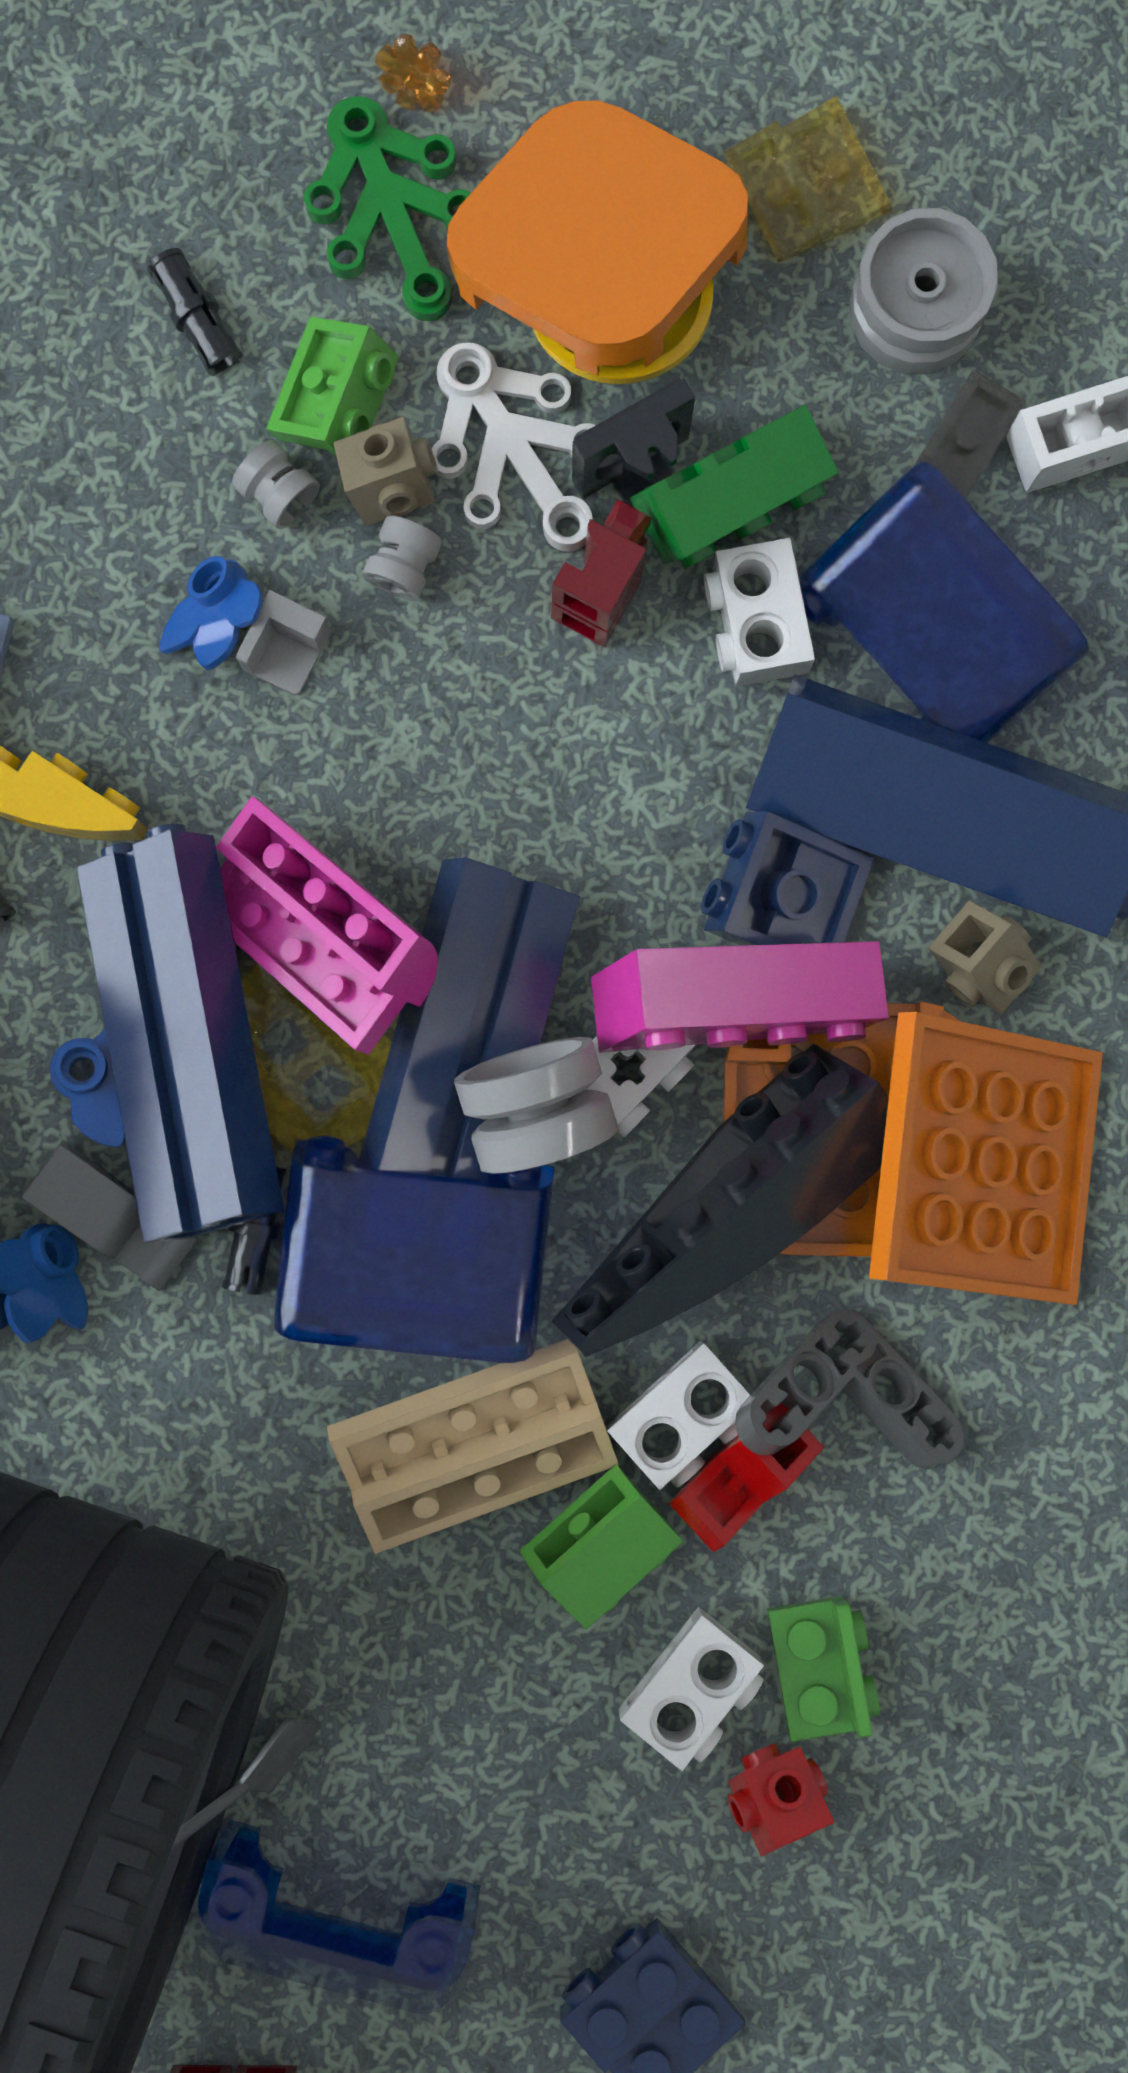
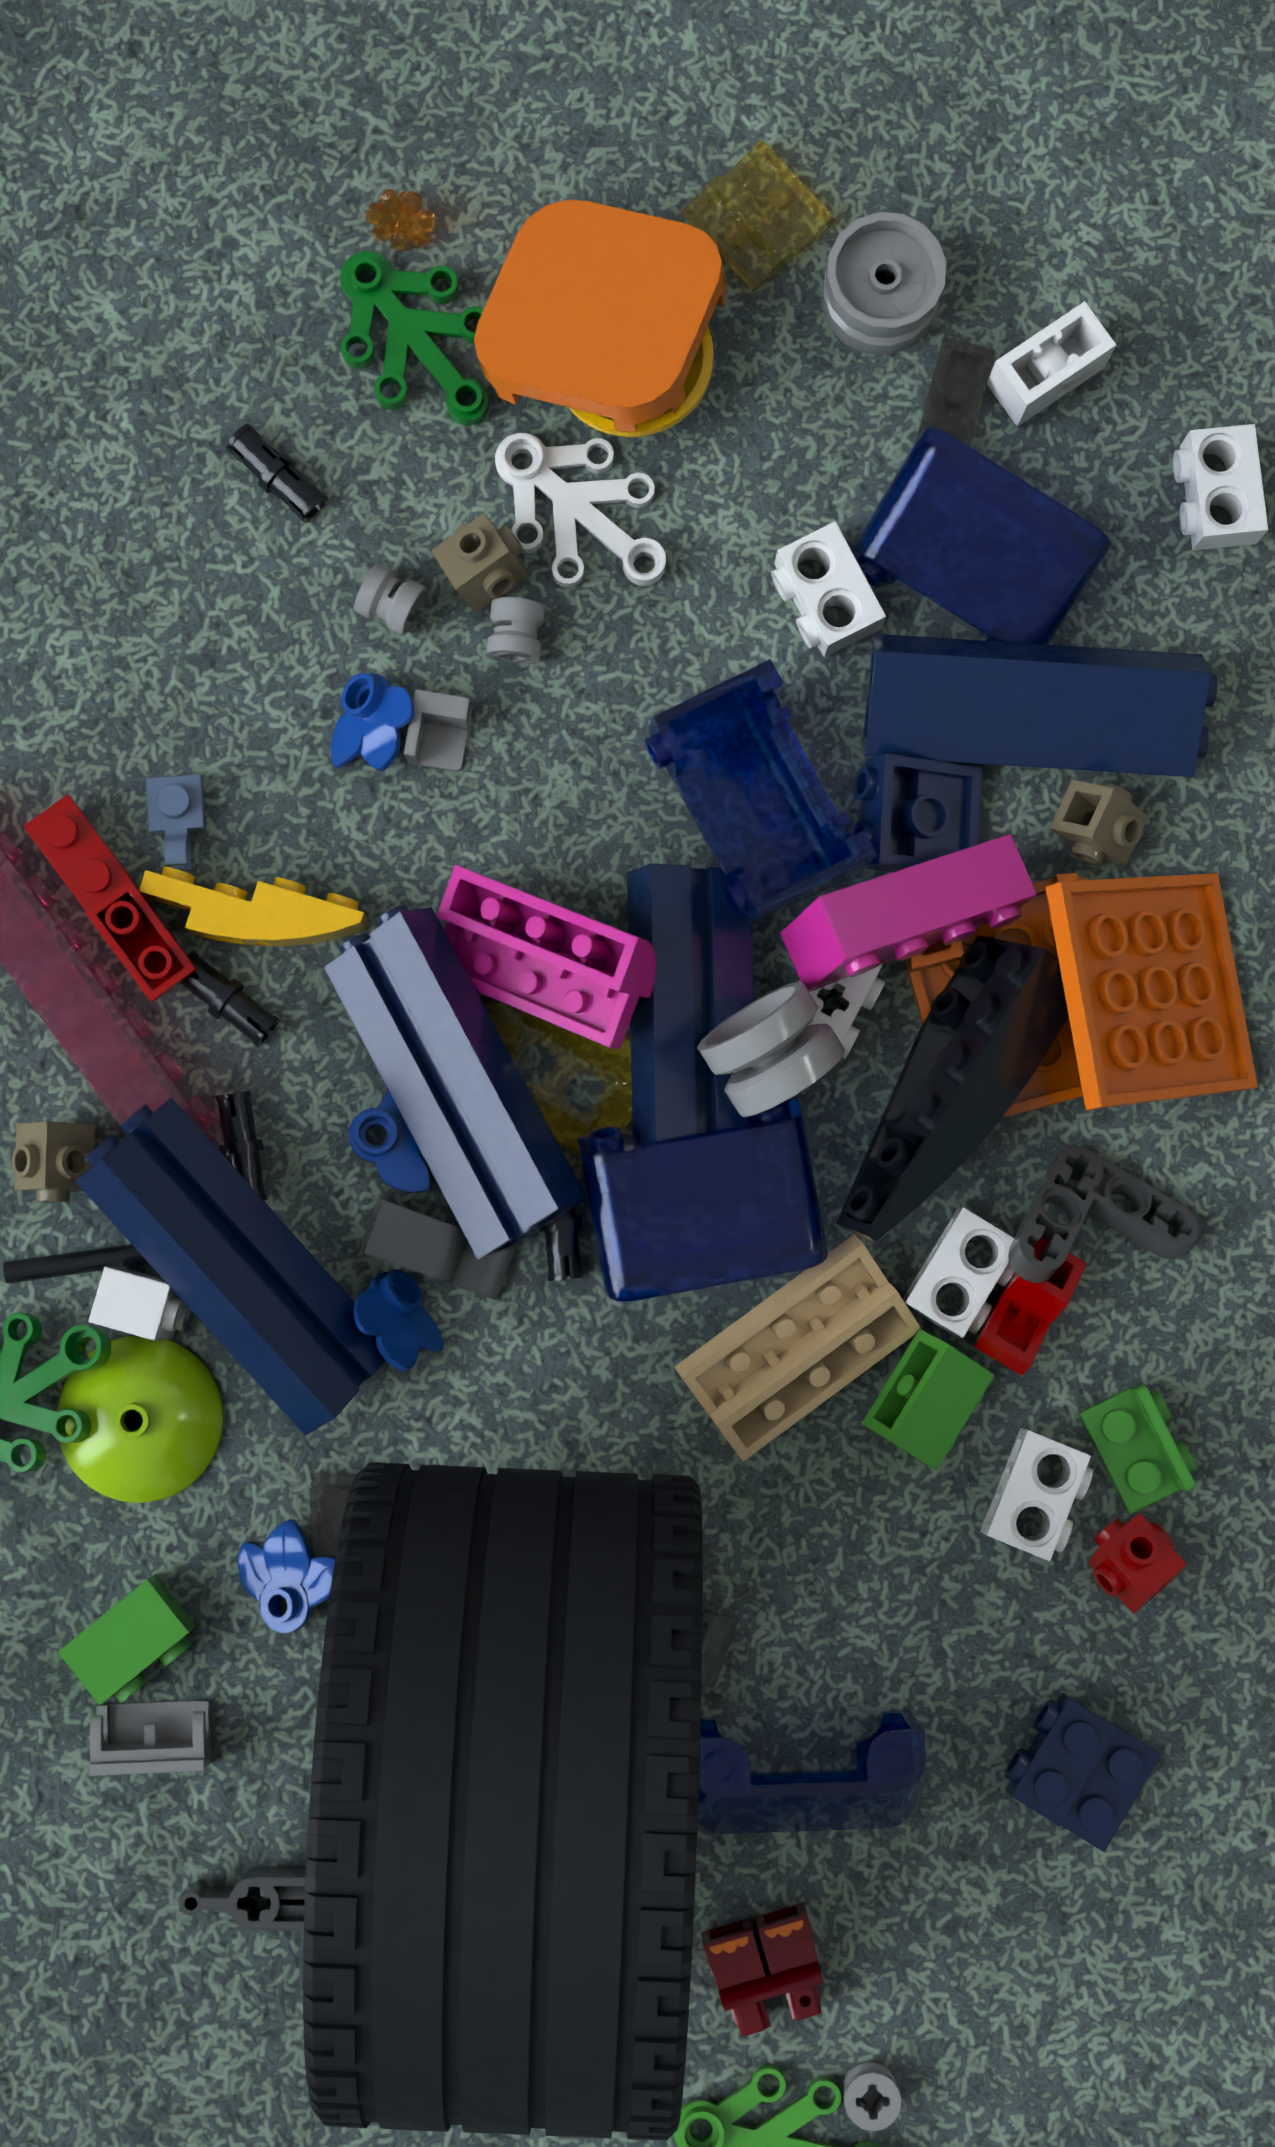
camera: 20 degrees left, 0 degrees up
(332, 384) = (412, 502): bright green bracket -> none
(608, 814) = (756, 794): none -> clear blue windscreen
(614, 563) = (693, 587): dark red hips -> none
(634, 444) = (680, 482): black piece -> none
(737, 488) = (776, 492): green wedge -> none

